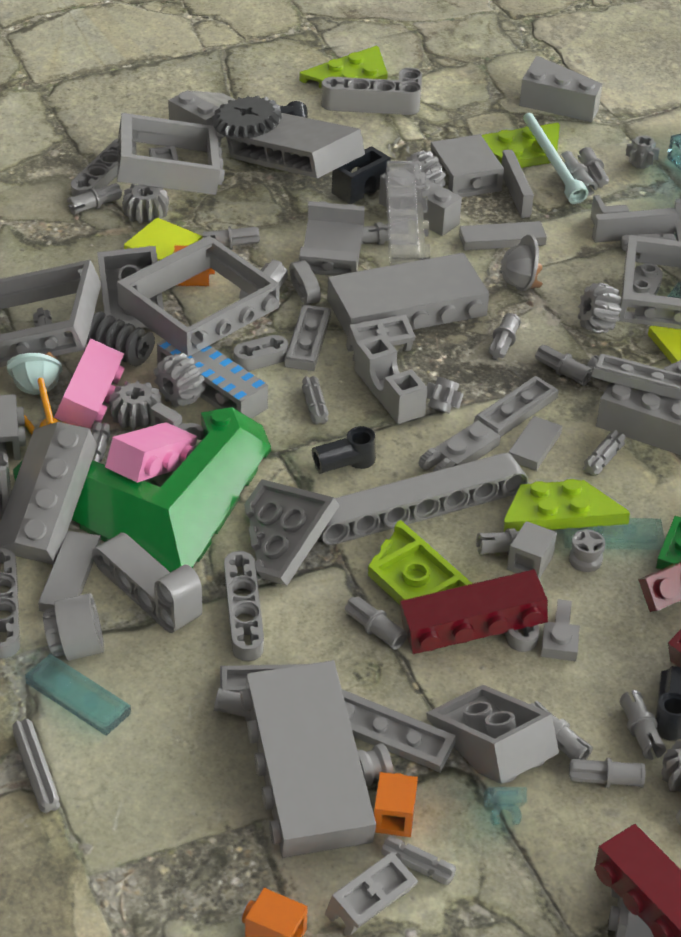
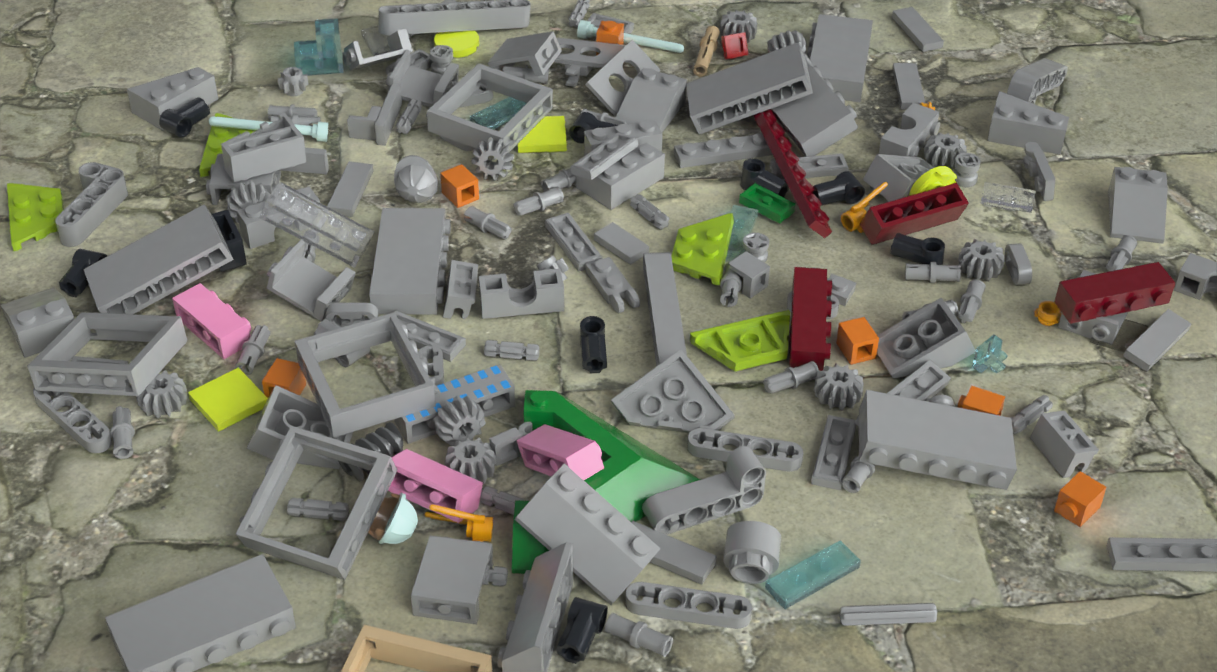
camera: 70 degrees left, 0 degrees up
(247, 117) = (87, 295): dark grey gear -> none
(254, 200) = (212, 320): none -> bright pink brick
(374, 662) = (838, 386): none -> light grey gear
(465, 666) = (857, 340): none -> orange brick
(483, 150) = (265, 150): none -> light grey wedge
(540, 106) = (182, 120): none -> black piece
(547, 300) = (459, 186): none -> orange brick

